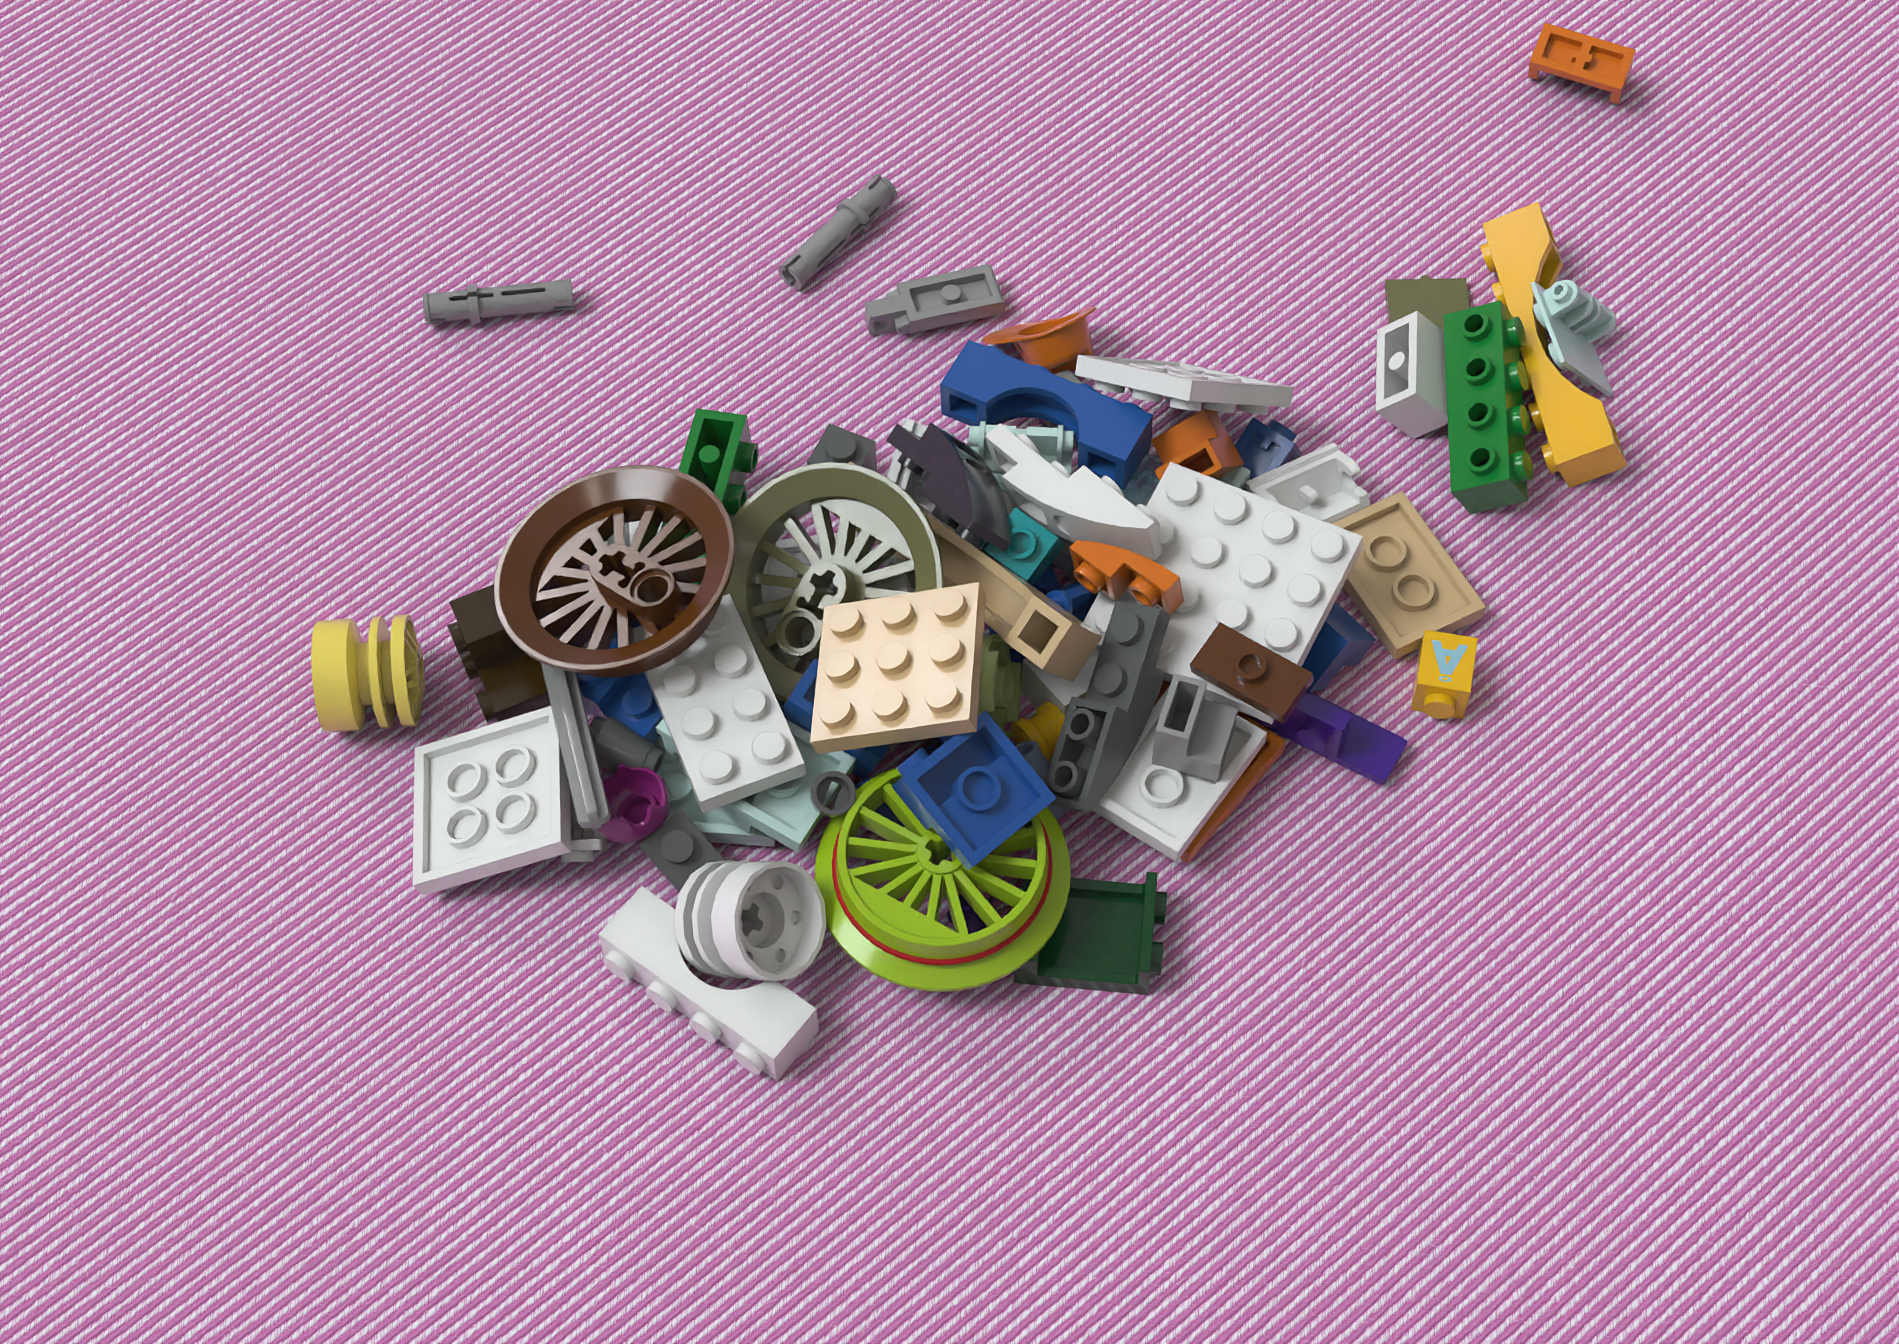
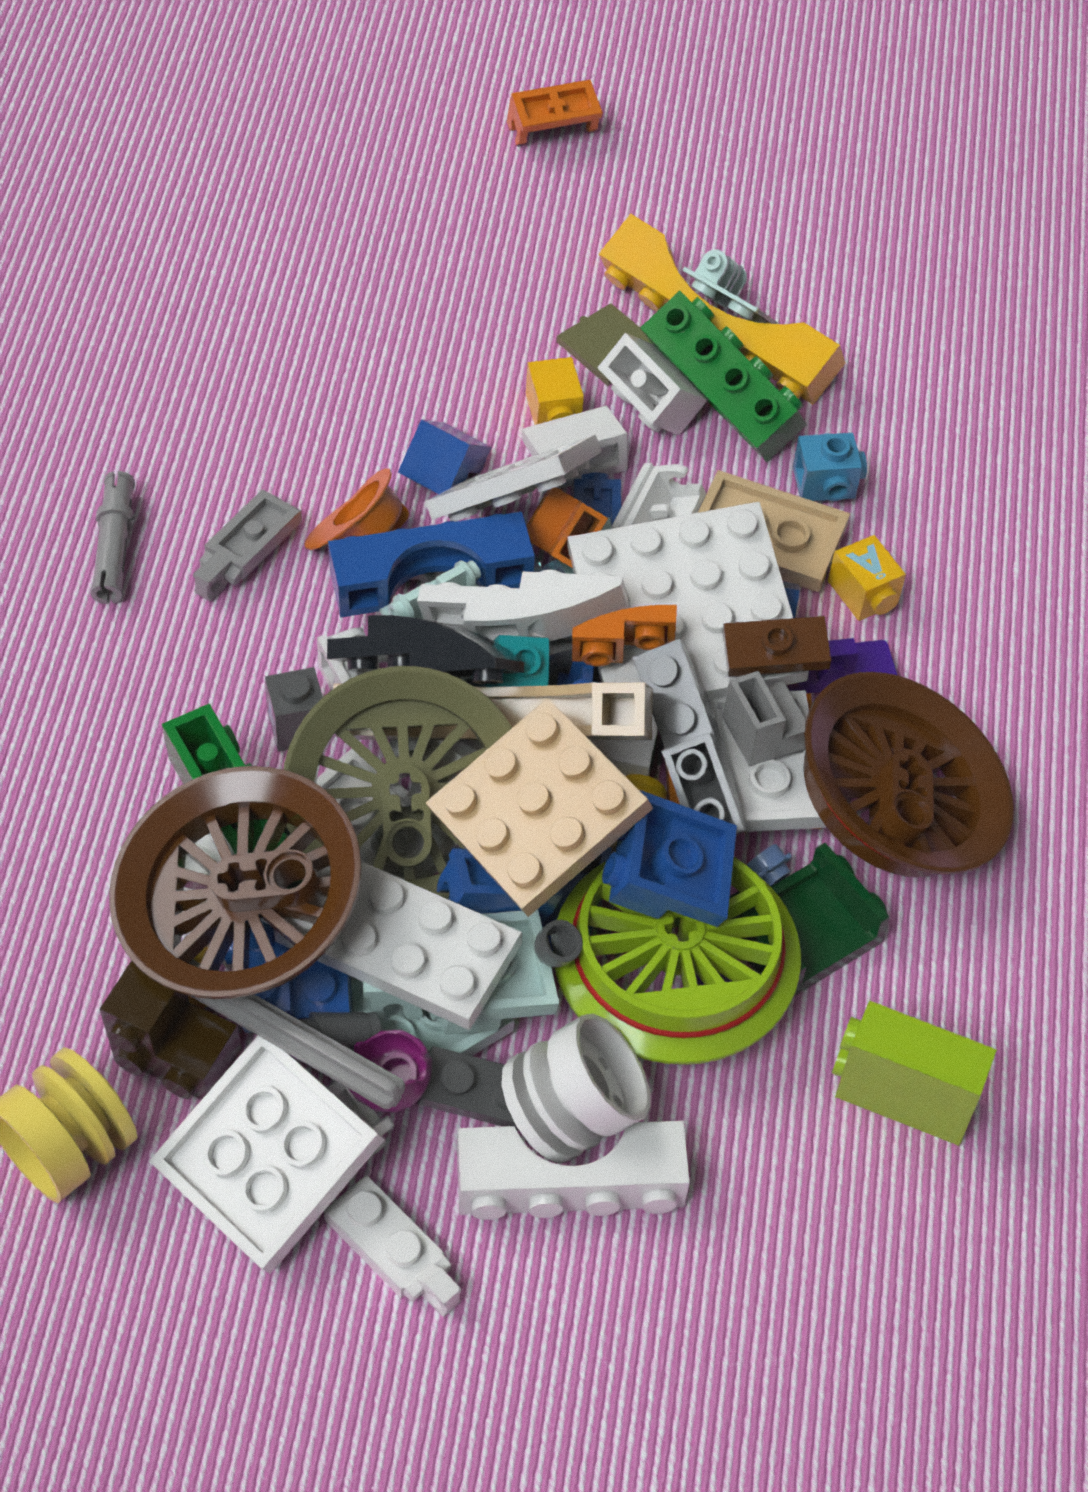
camera: 45 degrees left, 5 degrees down
(530, 941) = (393, 1246): none -> white hinge
(1039, 1110) = (912, 1071): none -> lime brick
(1105, 862) = (771, 864): none -> medium blue plate
(1170, 326) = (442, 456): none -> blue piece
(1316, 395) = (571, 428): none -> white hinge
(1321, 332) = (553, 389): none -> yellow brick
(1333, 811) = (882, 744): none -> reddish brown piece
(1506, 551) = (828, 466): none -> dark azure brick

